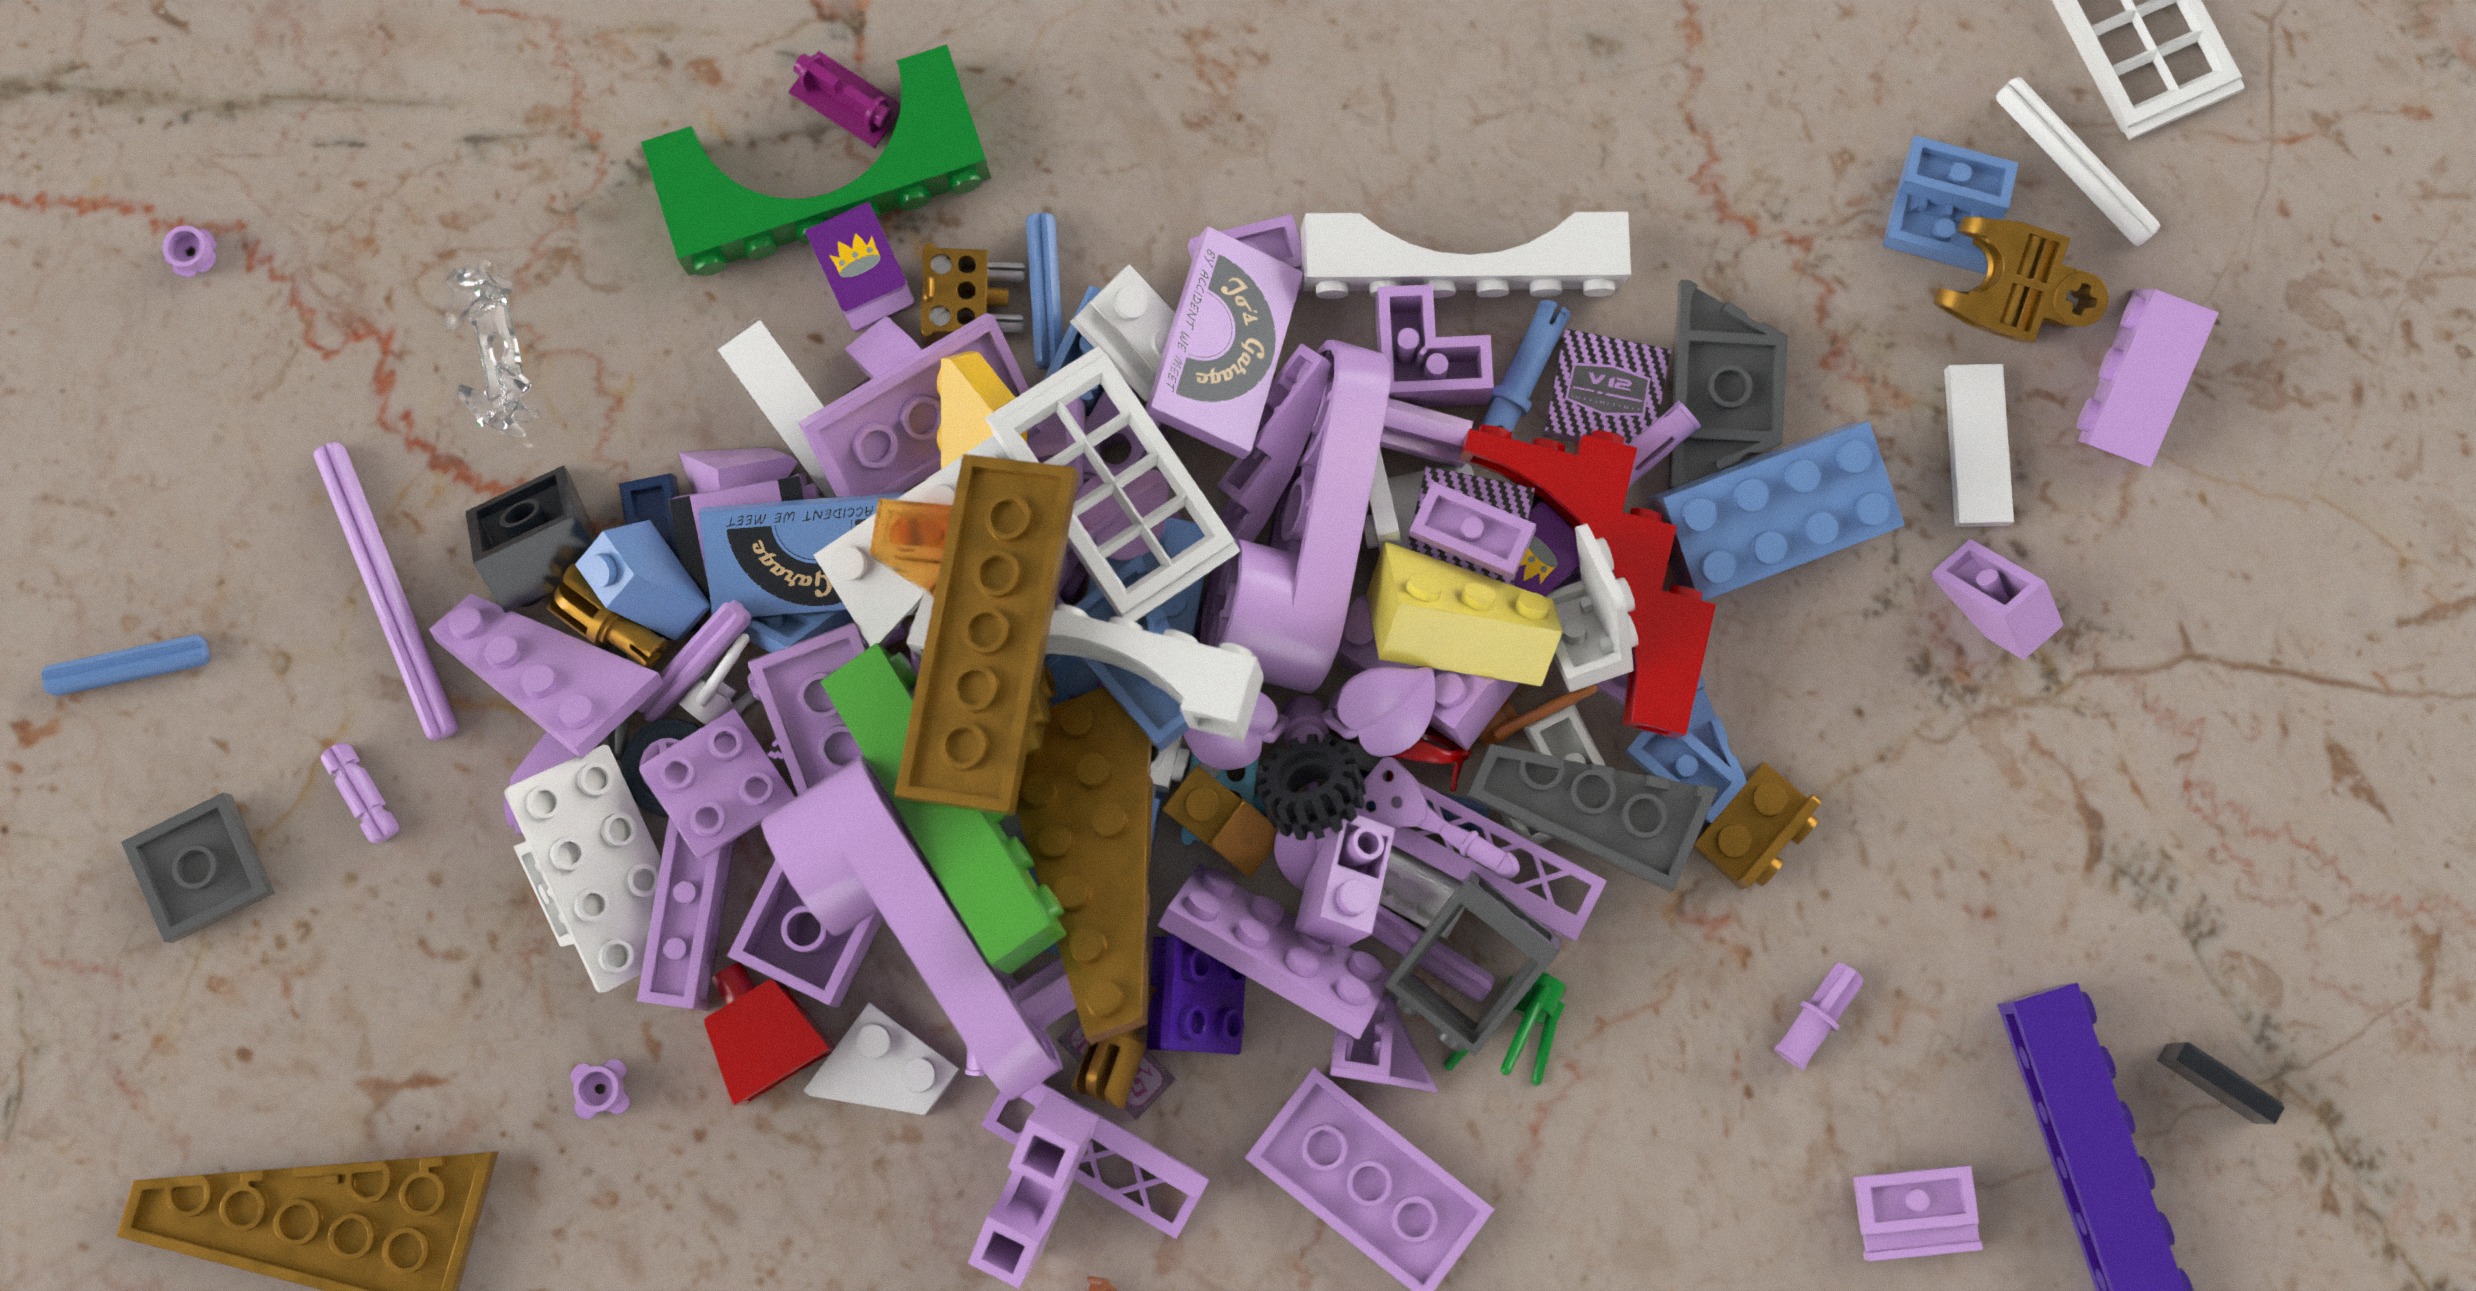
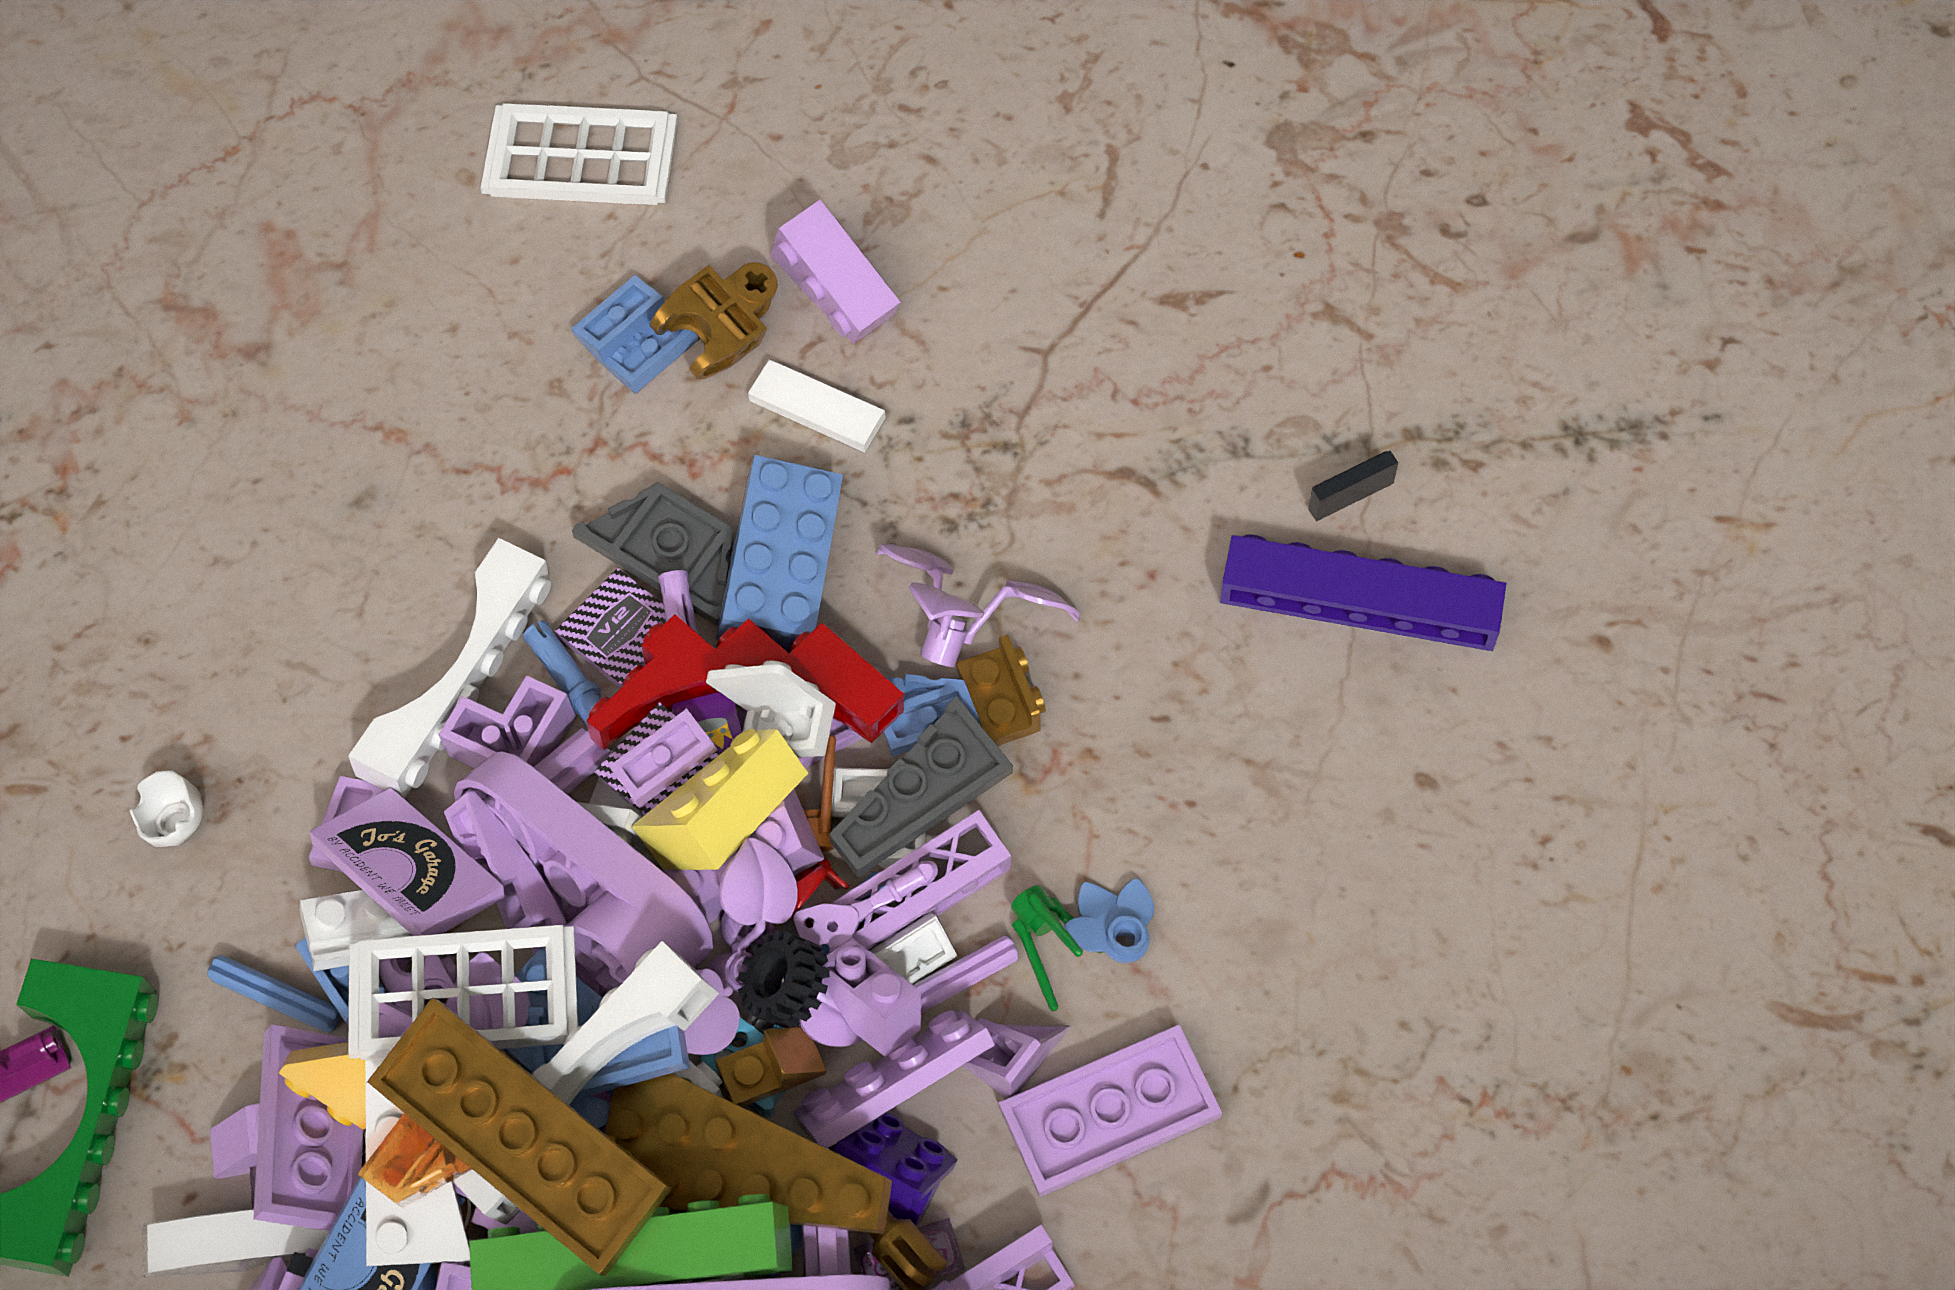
camera: 60 degrees left, 15 degrees down
(860, 267) = (158, 1124): dark purple piece -> none
(945, 283) = (228, 1059): pearl gold piece -> none
(1165, 71) = (167, 809): none -> white hair
(1507, 919) = (1025, 980): dark grey window -> none
(1576, 1073) = (1109, 916): none -> medium blue plate
(1799, 733) = (946, 630): none -> lavender plant
(1819, 1015) = (1162, 723): lavender axle -> none
(1917, 1213) = (1339, 730): lavender plate -> none
(1999, 598) = (932, 446): lavender slope -> none
(2078, 161) = (658, 240): white axle -> none

